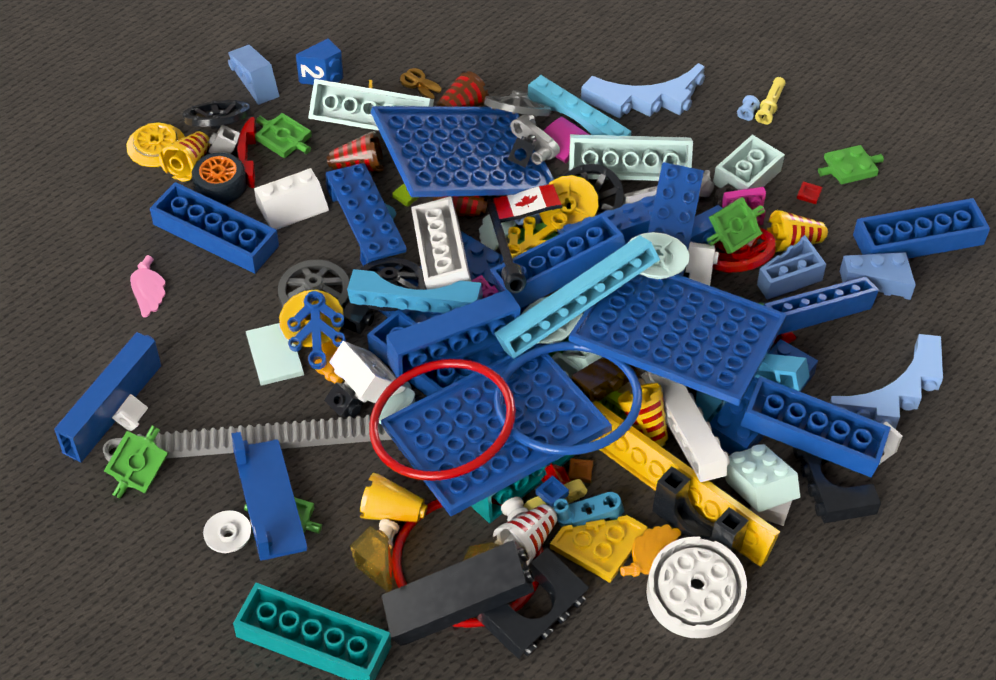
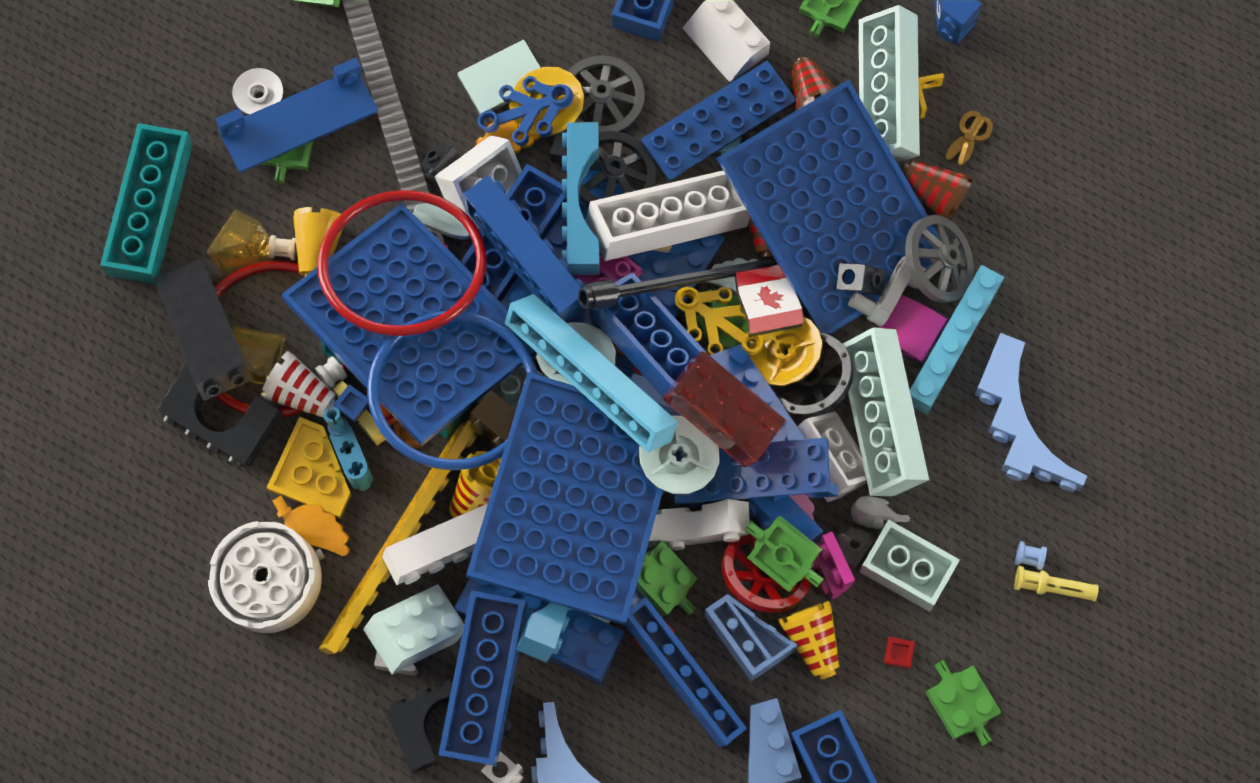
camera: 80 degrees right, 20 degrees up
(630, 212) = (724, 409): none -> clear red brick
(674, 506) = (331, 595): black arch -> none

